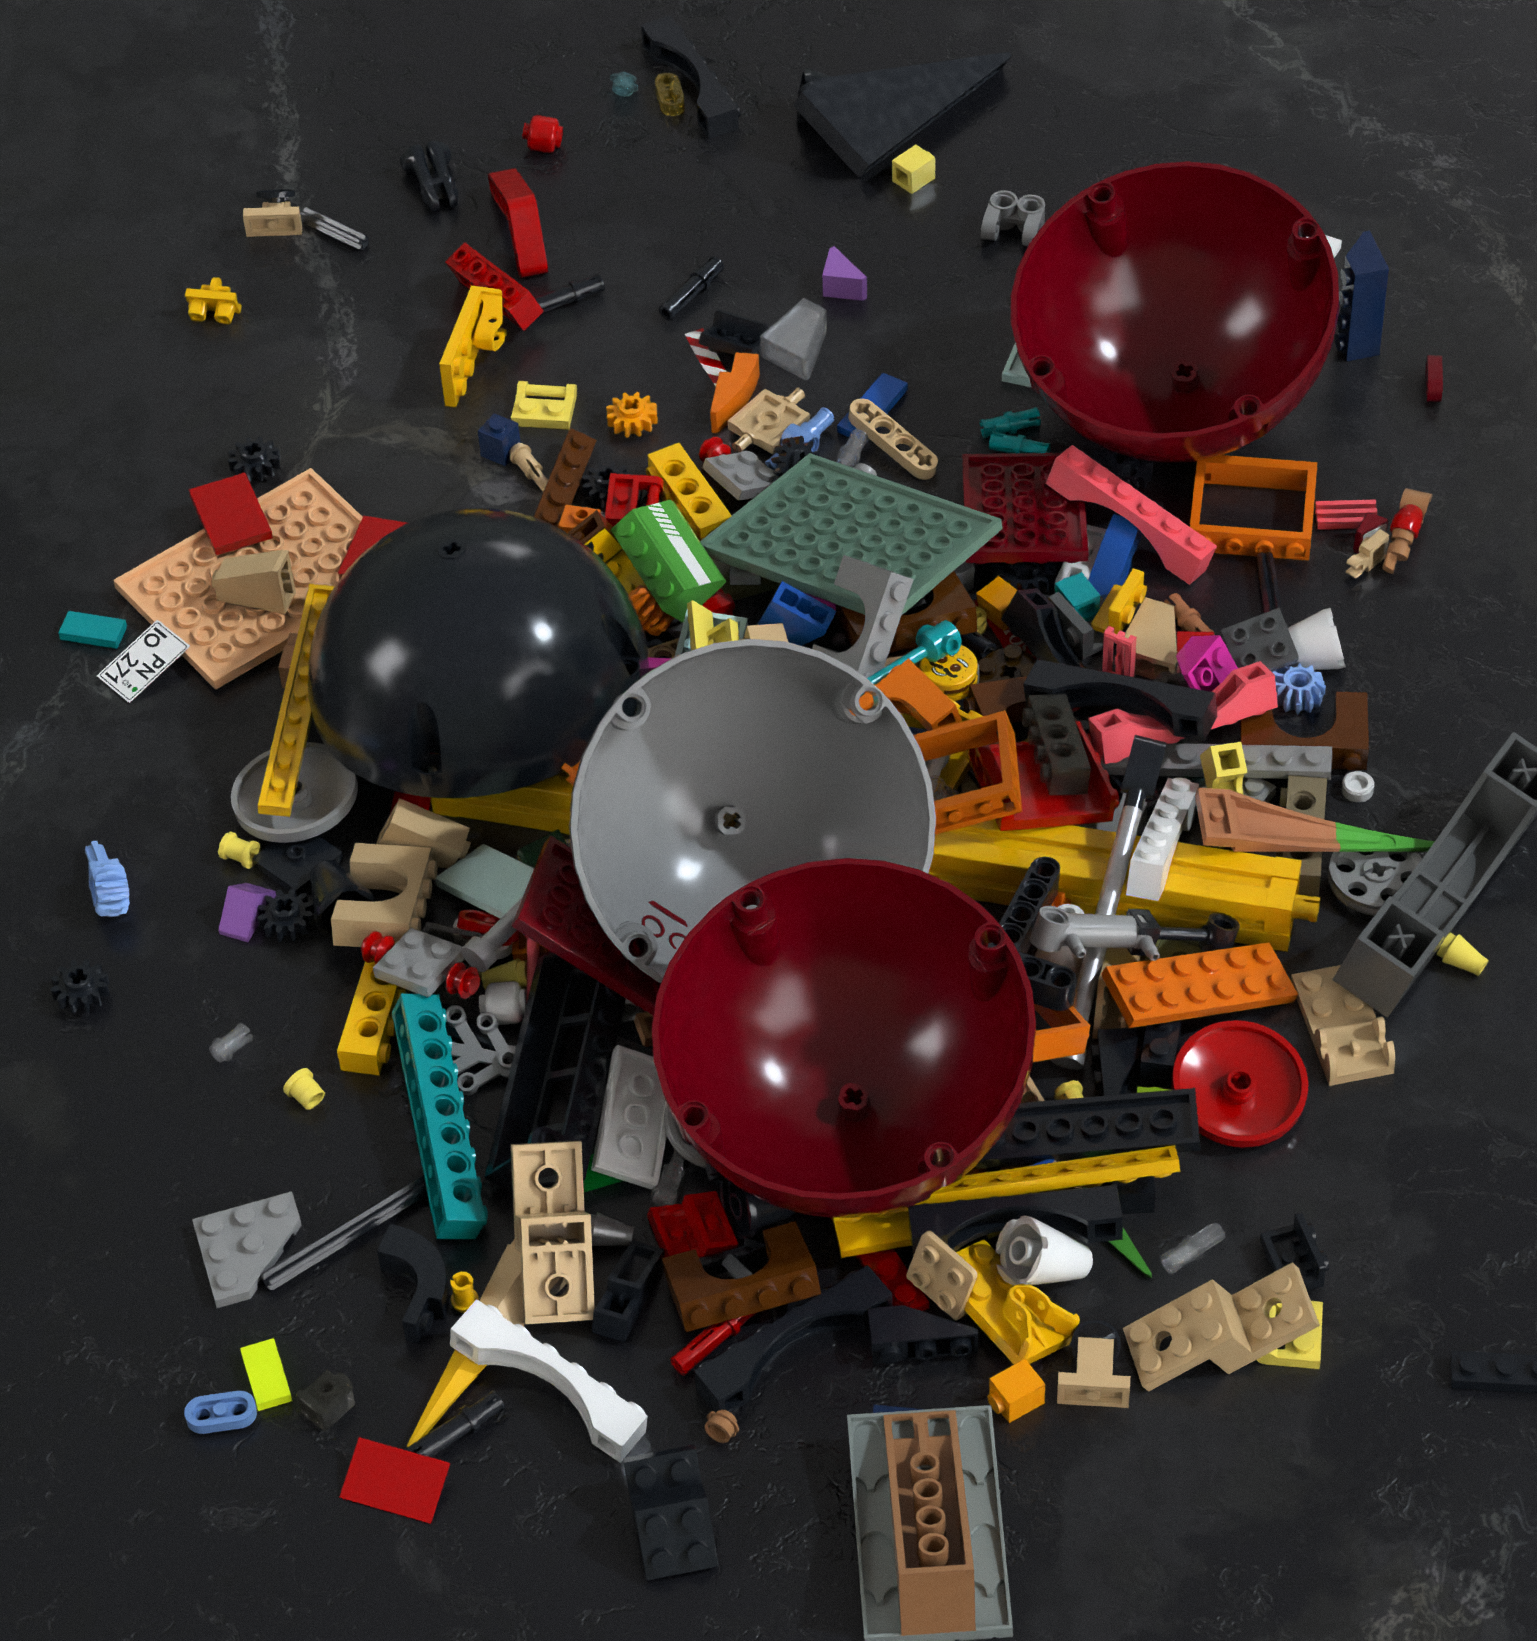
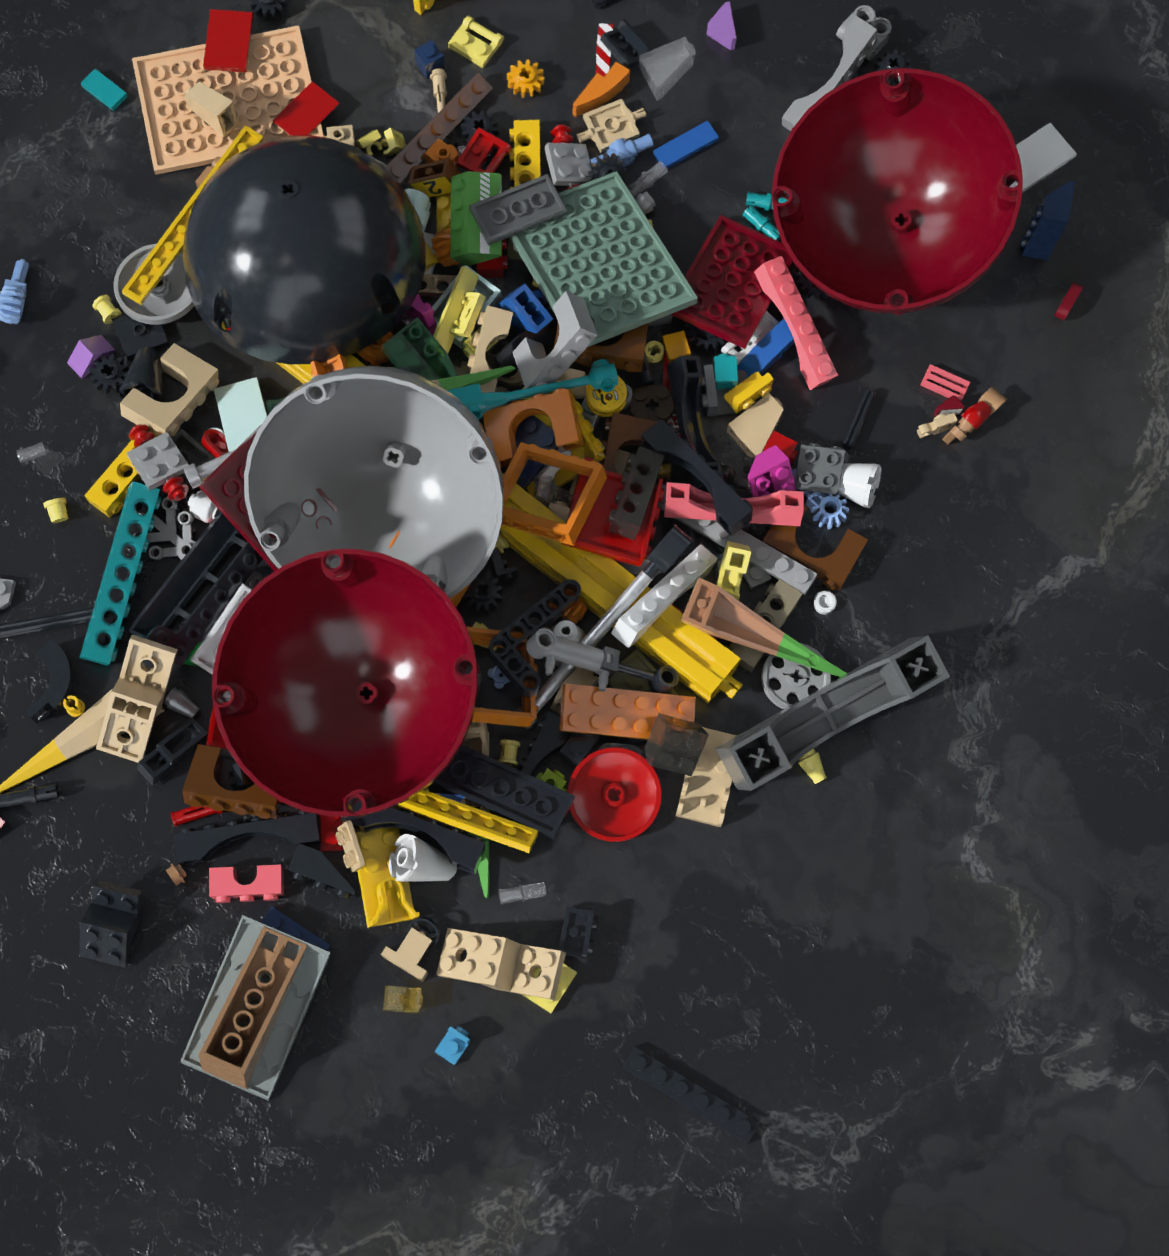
camera: 20 degrees right, 25 degrees up
(143, 661) = (121, 131): white sticker -> none
(422, 828) = (219, 355): tan slope -> none
(492, 1340) = (110, 839): white arch -> none
(718, 524) = (517, 209): none -> dark grey tile
(801, 1407) = (268, 884): none -> coral arch
(896, 436) = (680, 180): tan beam -> none
(1012, 228) = (856, 40): none -> light grey arch
(1016, 1391) = (358, 941): light orange brick -> none
(1119, 1431) = (402, 999): none -> clear yellow bracket
(1124, 665) = (724, 432): coral tile -> none
(1187, 617) = (792, 418): nougat pin -> none
(1217, 1453) = (453, 1044): none -> dark azure bracket
(1260, 474) = (874, 382): orange window -> none
(1282, 990) = (675, 744): none -> clear smoke brick

